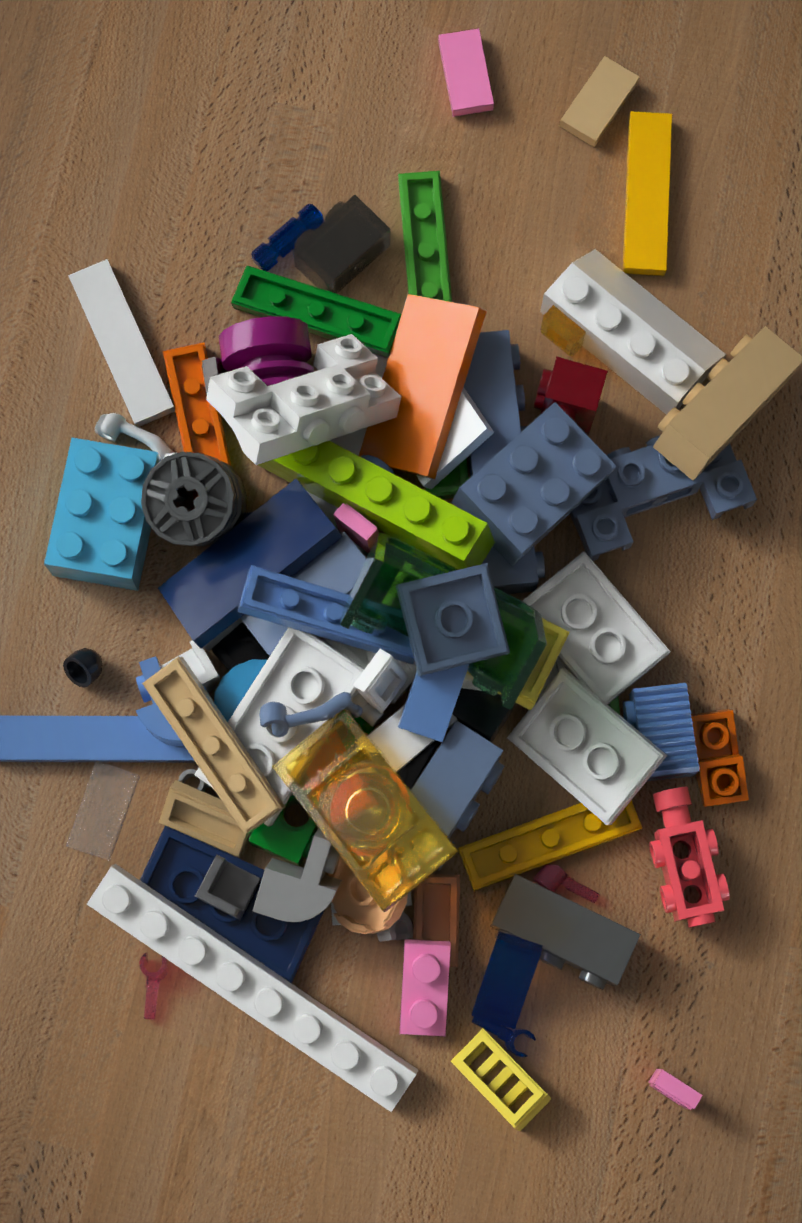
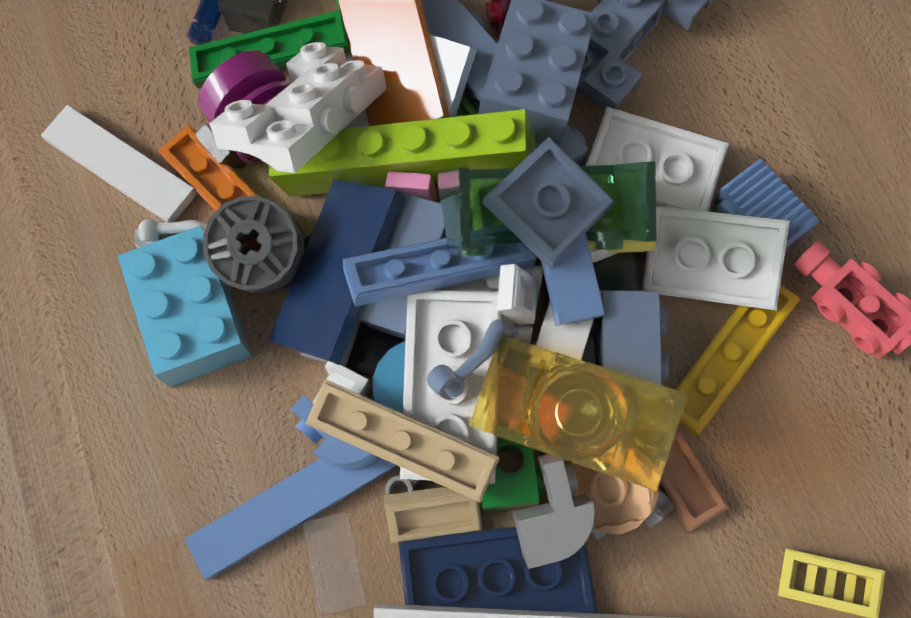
camera: 25 degrees left, 5 degrees down
(83, 667) = (242, 447): black hinge -> none
(228, 887) = (491, 562): flat silver panel -> none
(425, 987) = (715, 544): bright pink plate -> none
(504, 1033) = (812, 541): clear blue hand -> none
(506, 980) = (782, 492): clear blue tile -> none
(553, 876) = (755, 383): clear pink hand -> none
(567, 932) = (800, 422): dark grey brick -> none
(720, 765) = (837, 216): orange slope -> none

